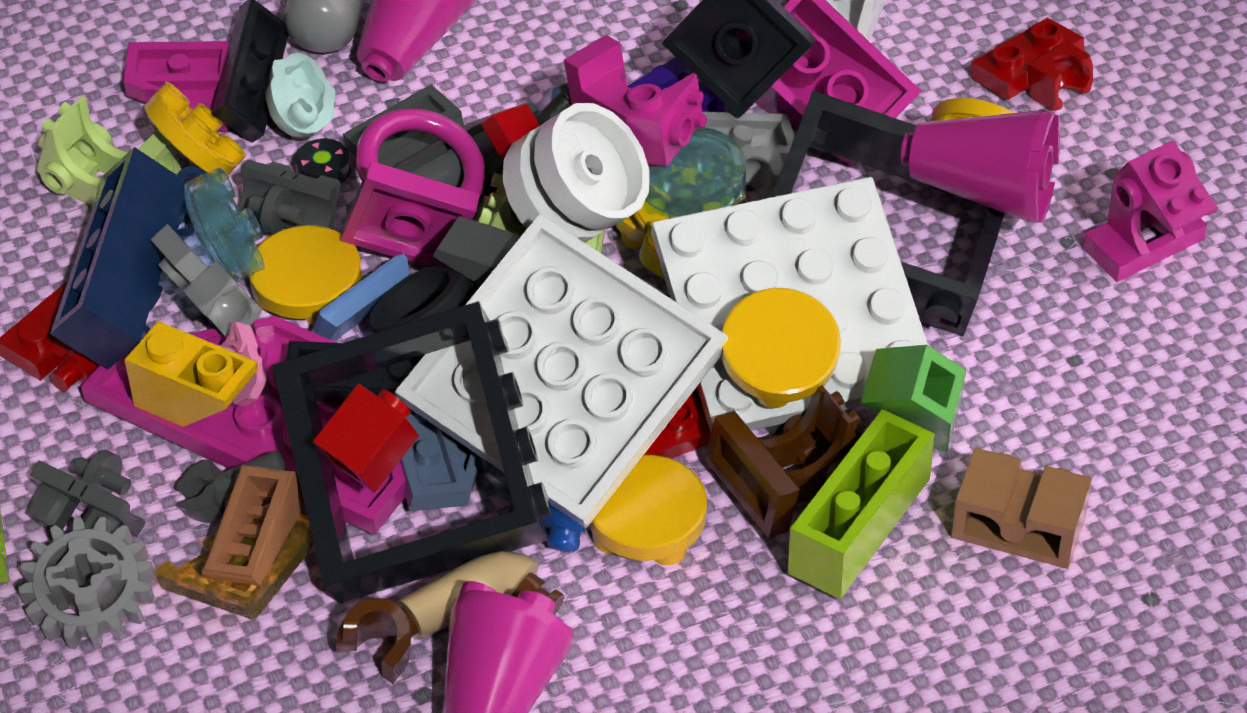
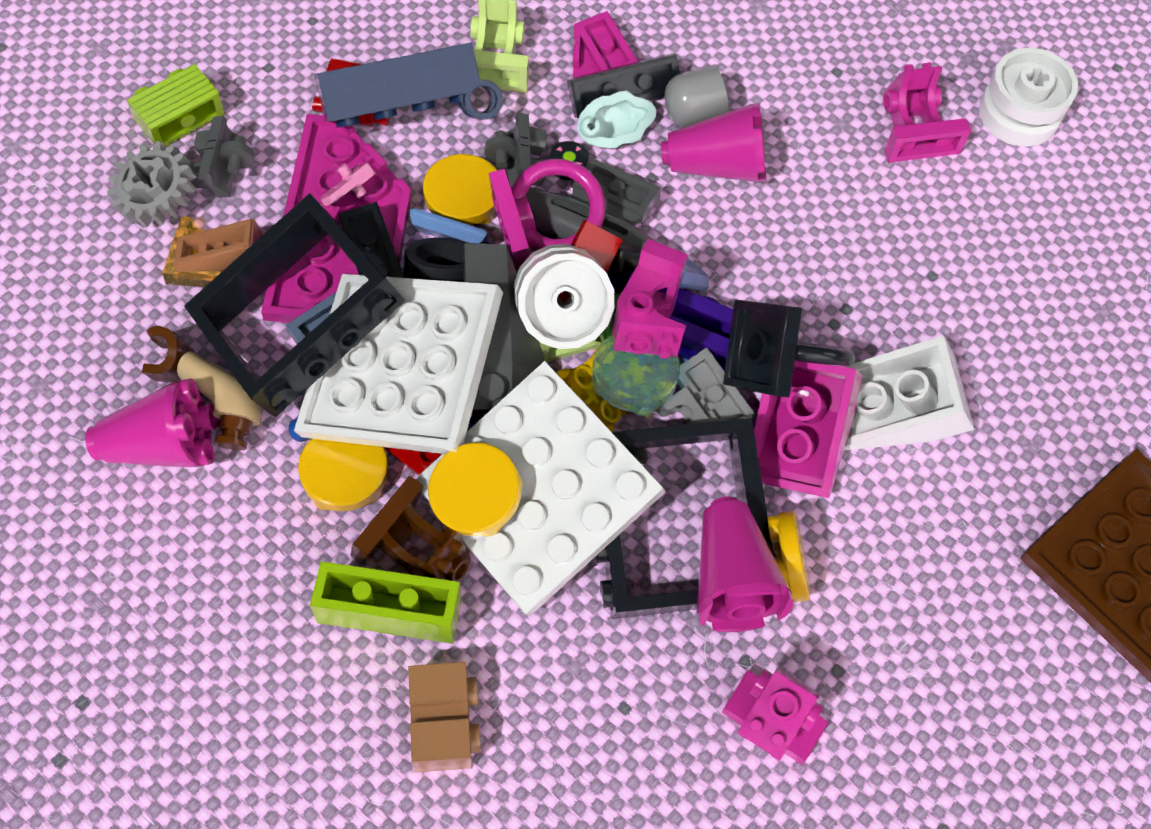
camera: 60 degrees right, 15 degrees up
(184, 375) = (312, 155): yellow slope -> none
(193, 130) = (535, 75): yellow tile -> none
(209, 487) = (265, 216): dark grey bar -> none
(210, 288) = (404, 139): light grey plate -> none
(221, 226) = (451, 122): clear light blue tile -> none
(368, 436) = (264, 269): red brick -> none
(917, 387) = (488, 603): bright green slope -> none
(1038, 60) = (918, 571): red plate -> none

